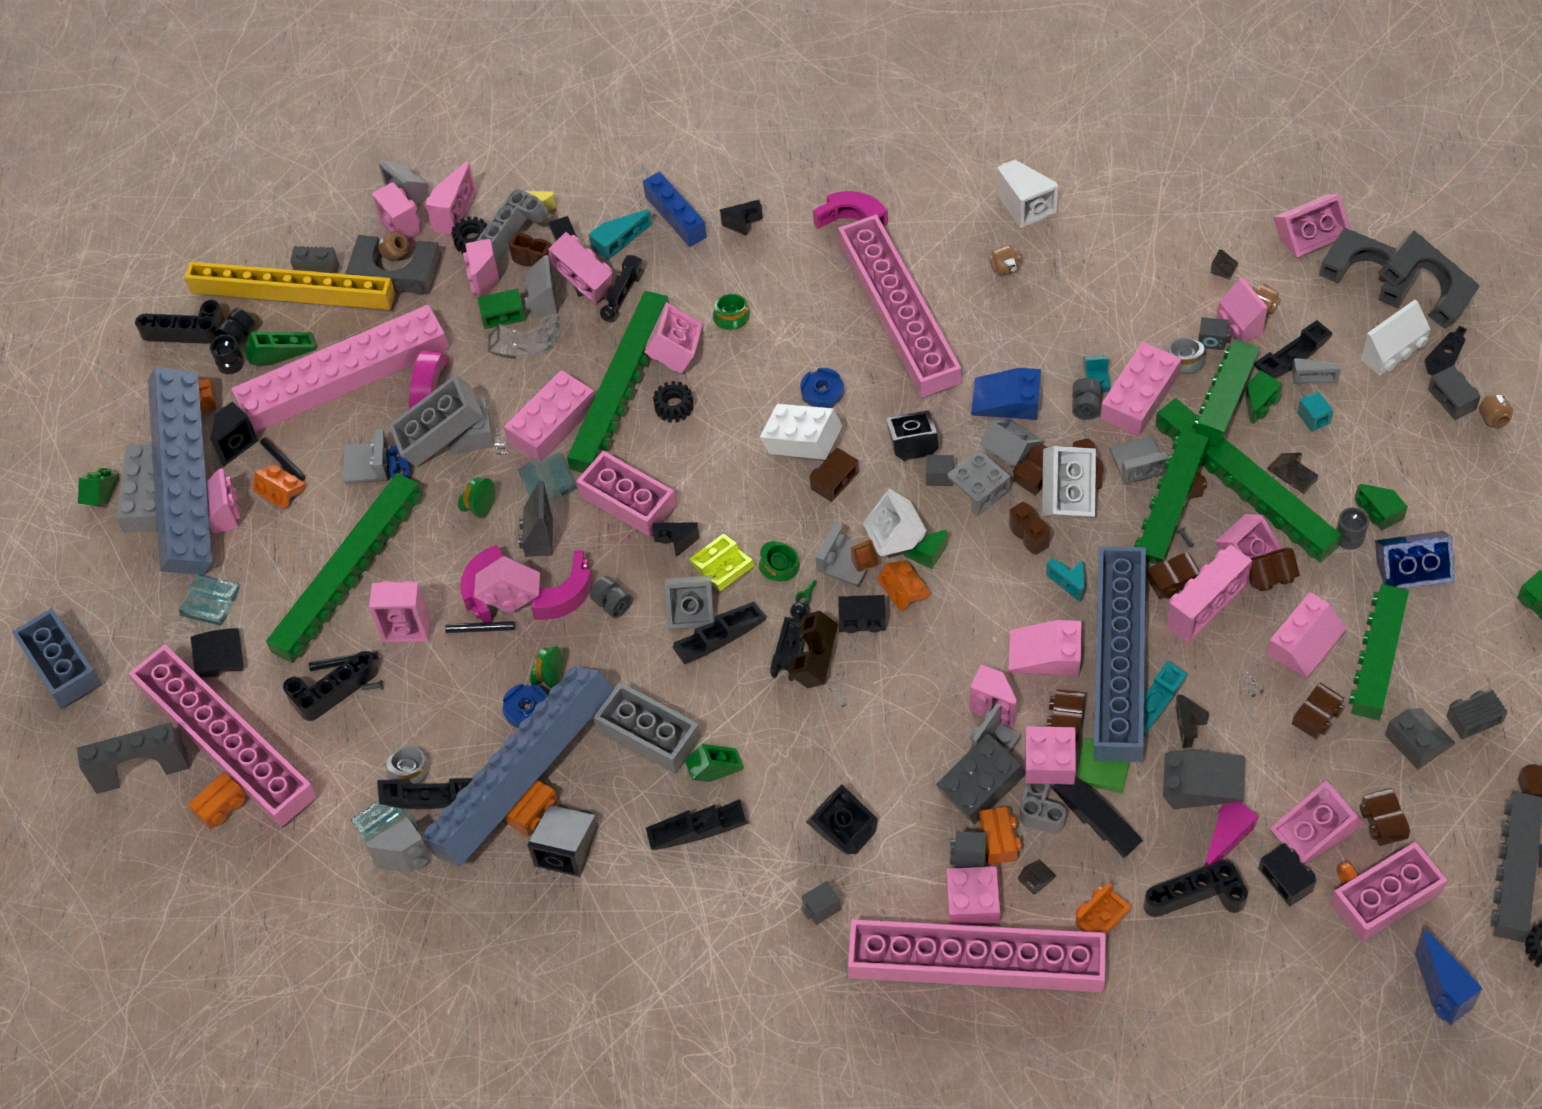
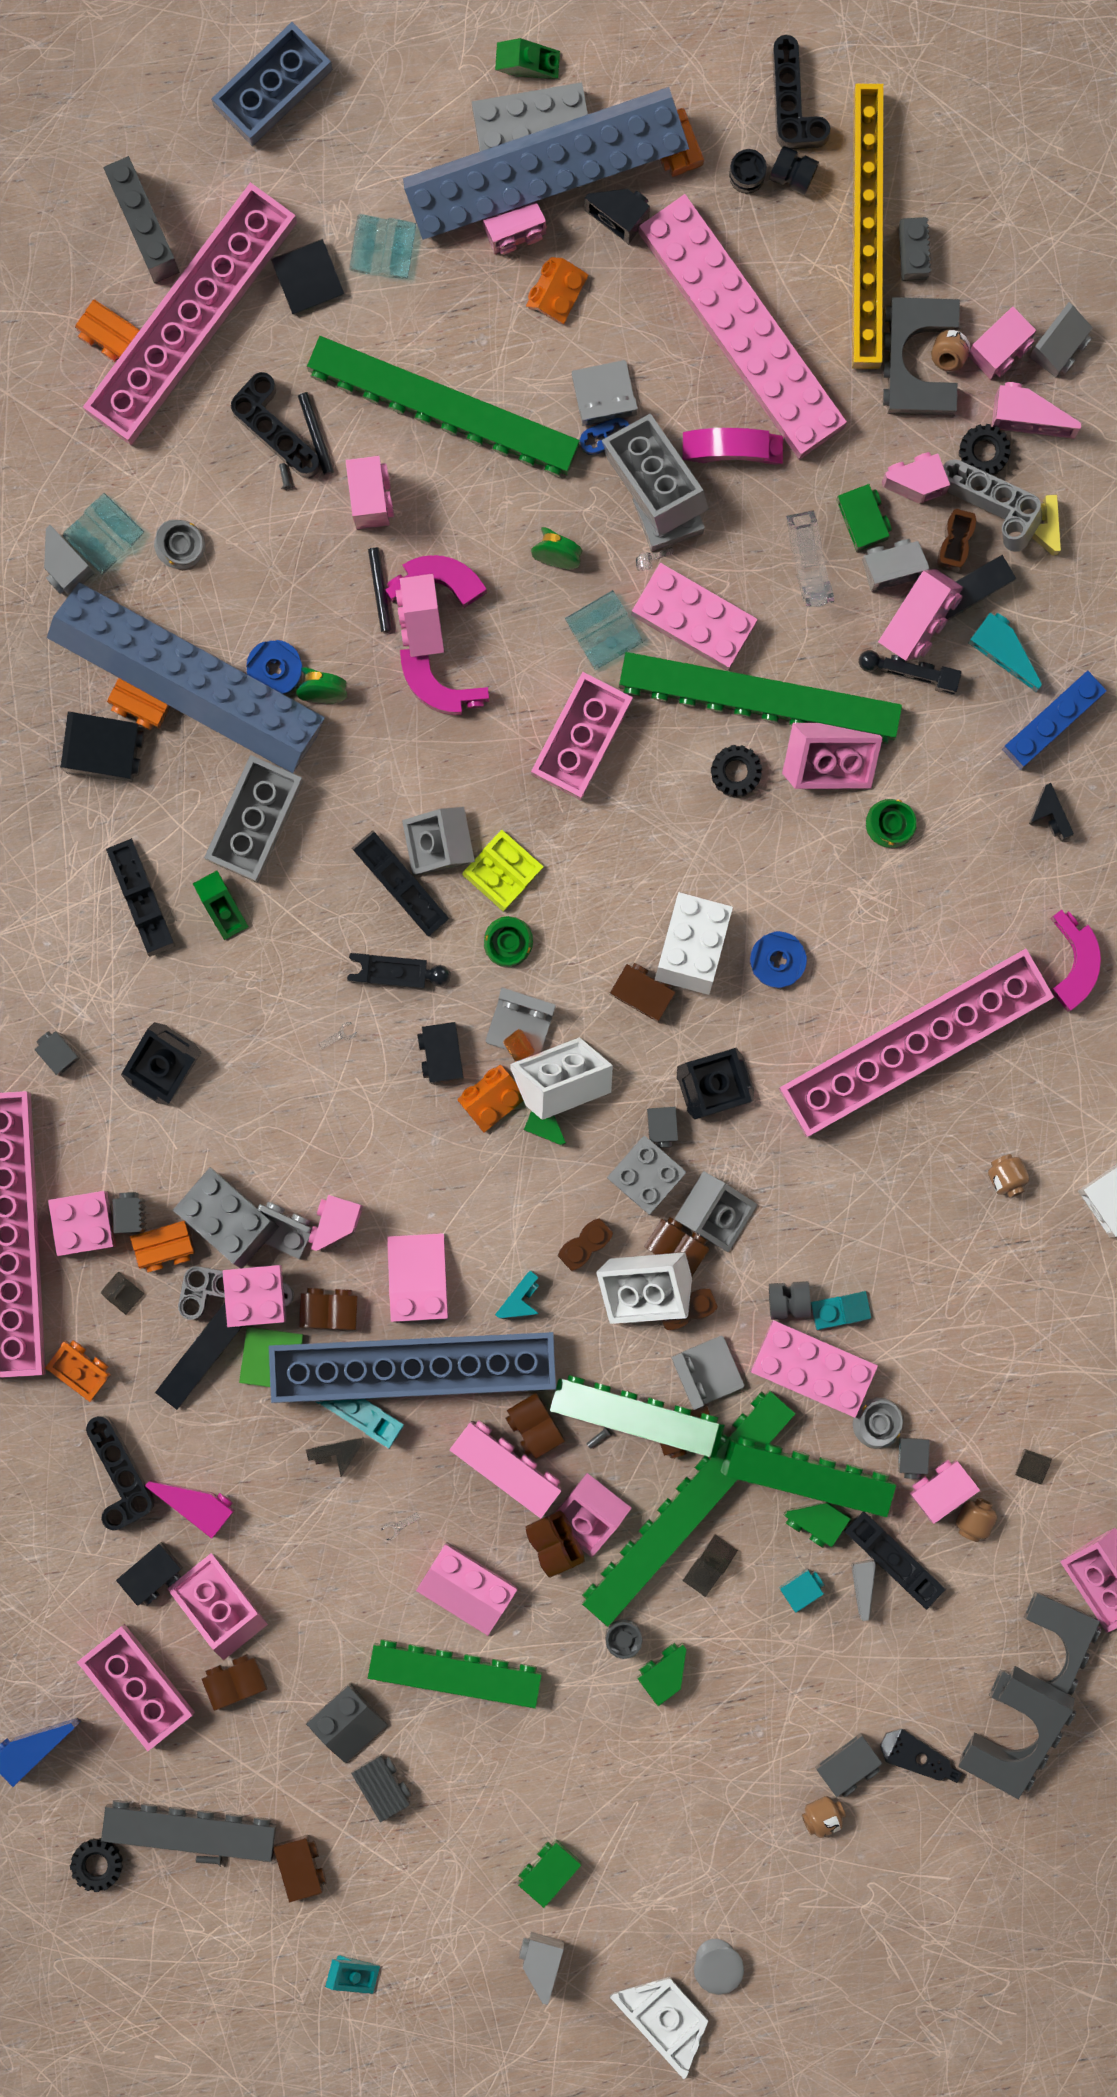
camera: 80 degrees right, 30 degrees up
(273, 347) = (771, 236): green slope -> none
(281, 459) = (599, 284): black bar -> none
(419, 796) = (142, 572): black slope -> none
(537, 524) = (519, 633): dark grey slope -> none
(611, 597) = (431, 743): dark grey wheel -> none
(681, 533) = (532, 815): black slope -> none
(805, 594) = (469, 981): green hand -> none
(812, 666) = (360, 1004): dark brown arch -> none
(1007, 394) = (790, 1197): blue slope -> none
(1203, 779) = (252, 1474): dark grey slope -> none
(1318, 711) = (365, 1604): reddish brown brick -> none
(1346, 872) = (156, 1641): orange tile -> none
(1396, 339) = (918, 1693): white slope -> none
(1416, 560) = (589, 1716): clear blue slope -> none

